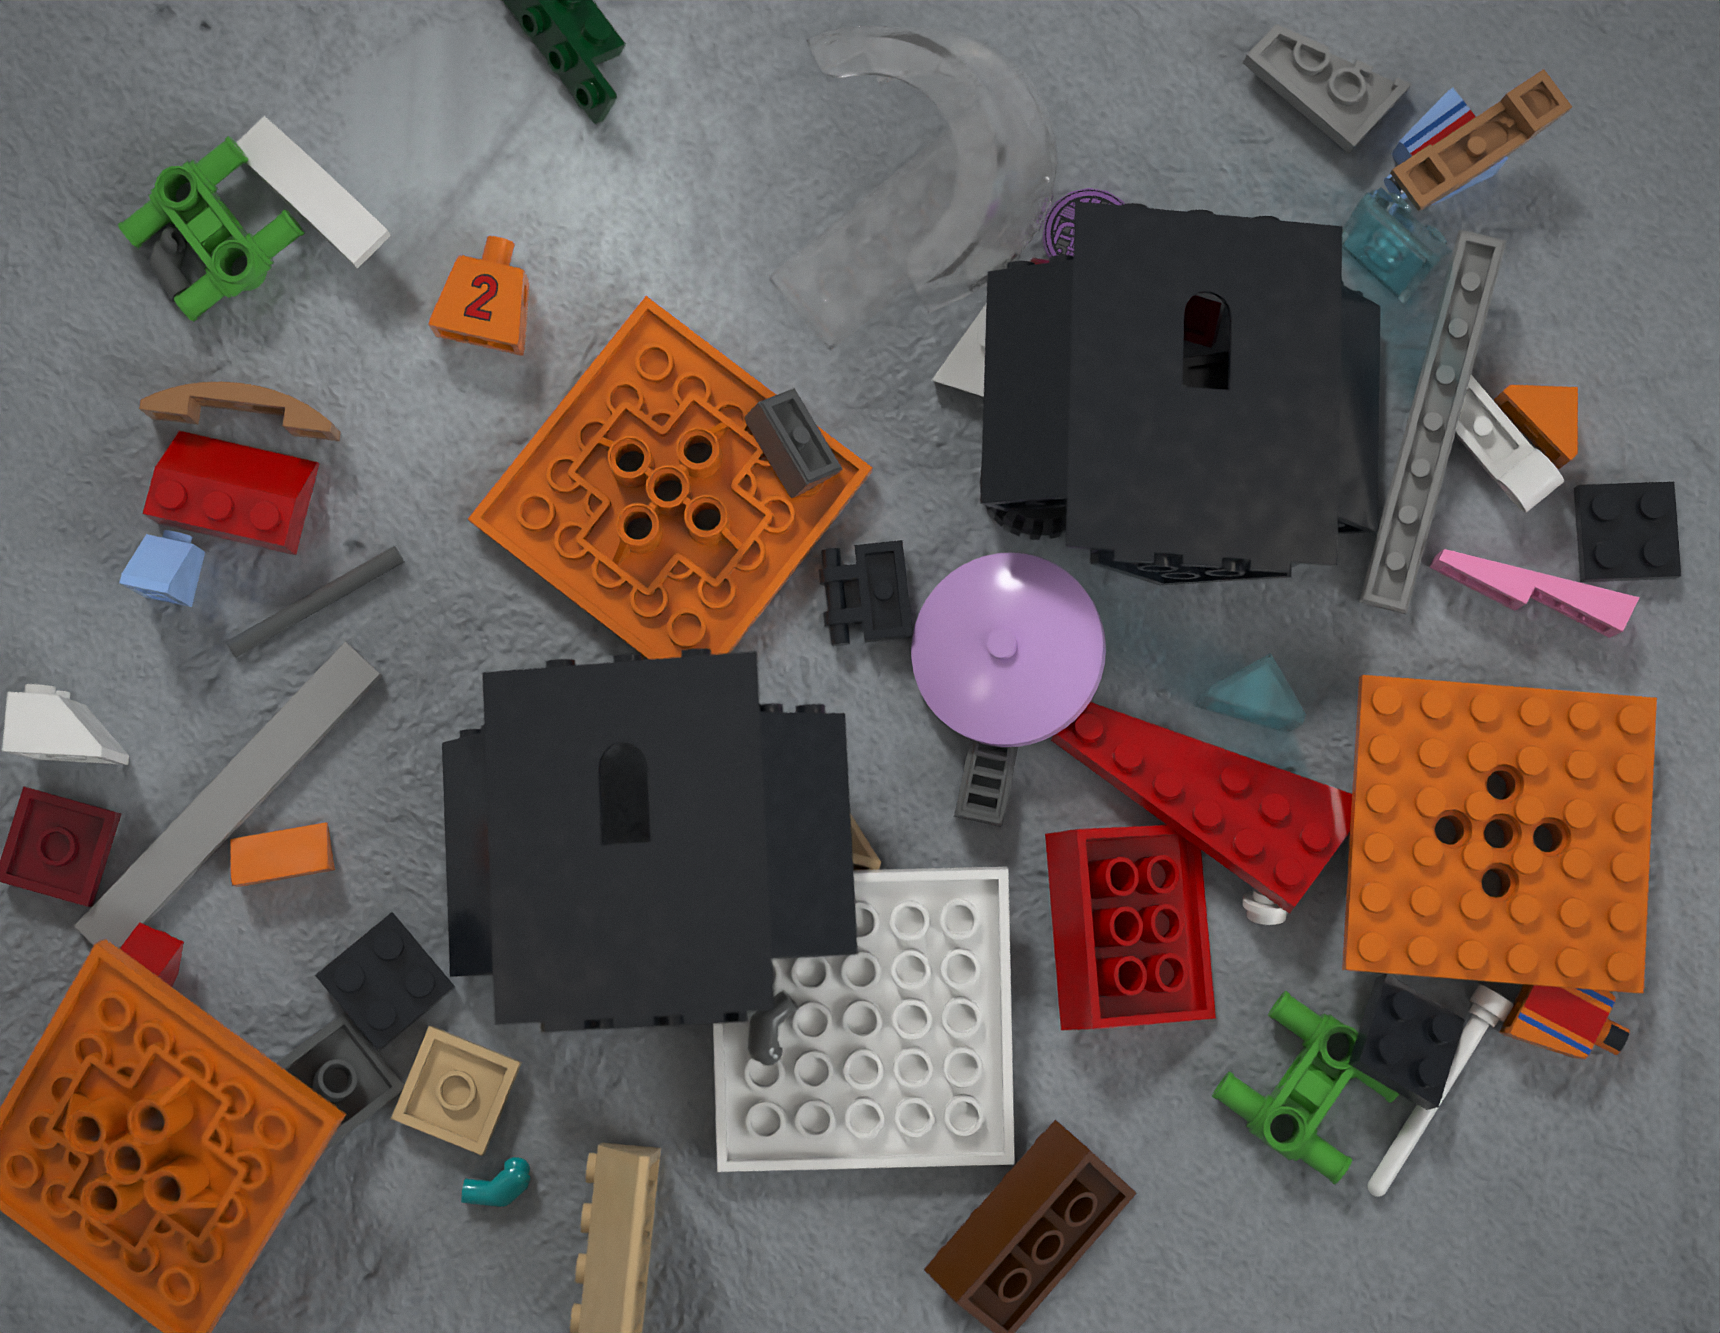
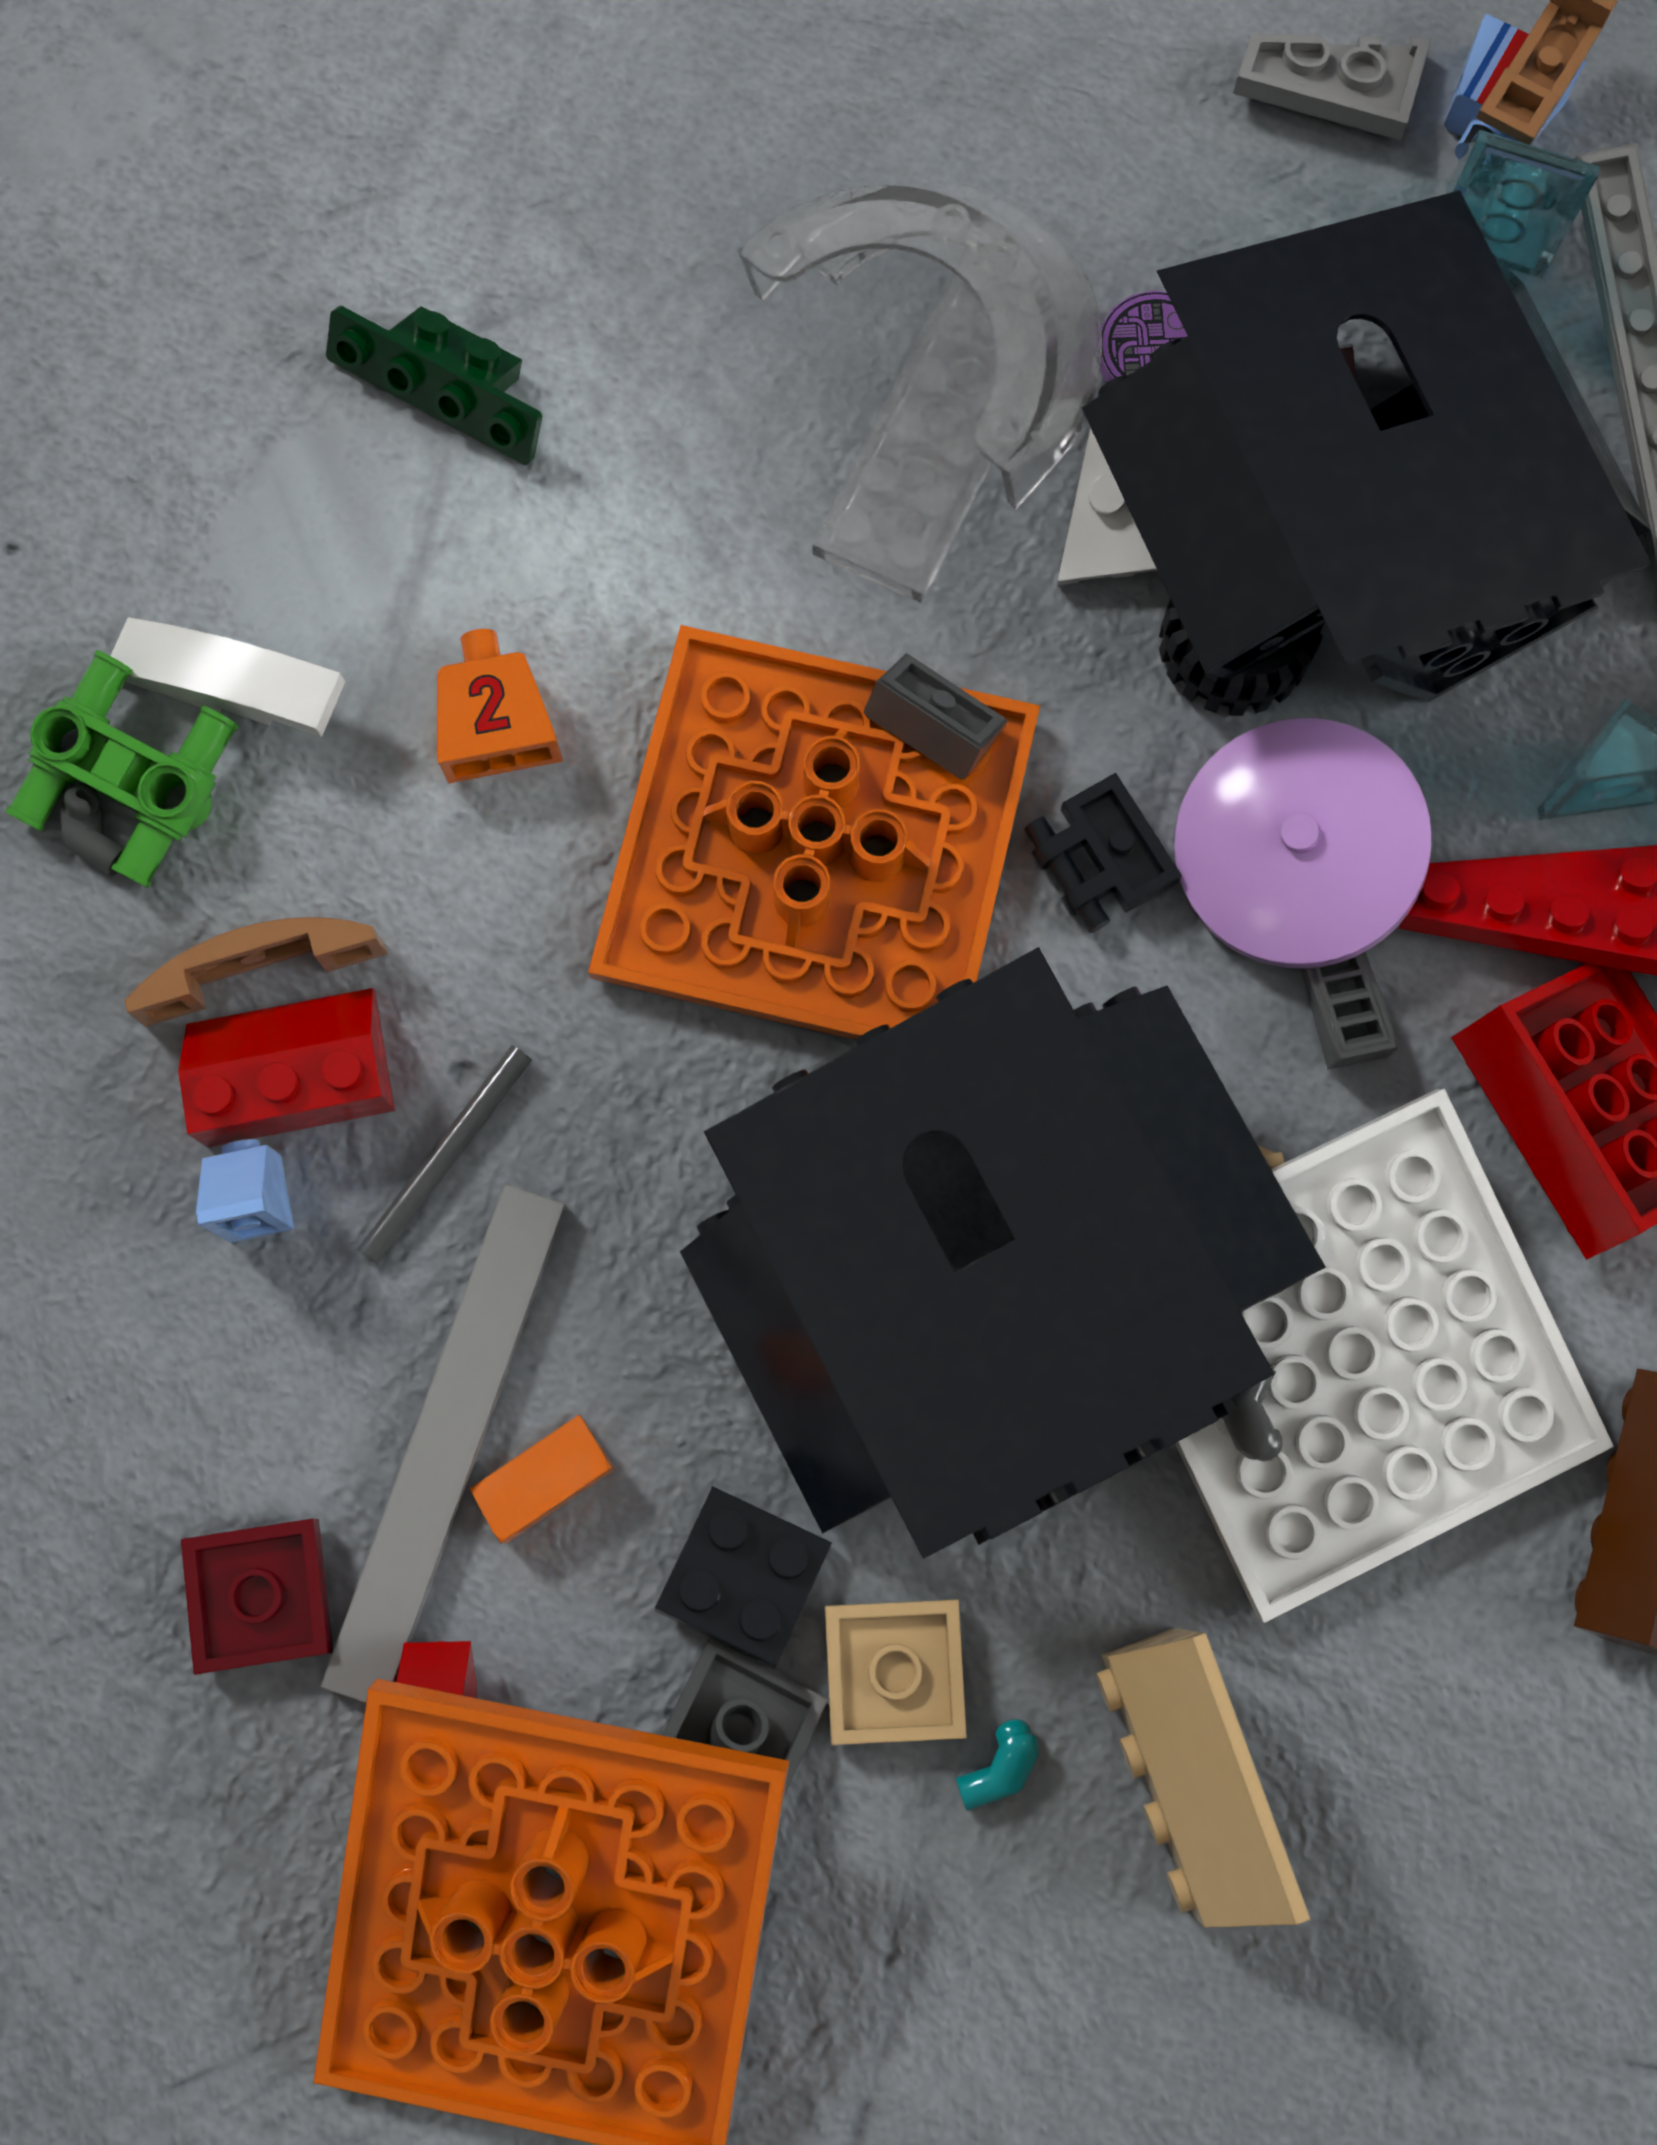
camera: 25 degrees left, 5 degrees down
(55, 728) = (192, 1448): white slope -> none

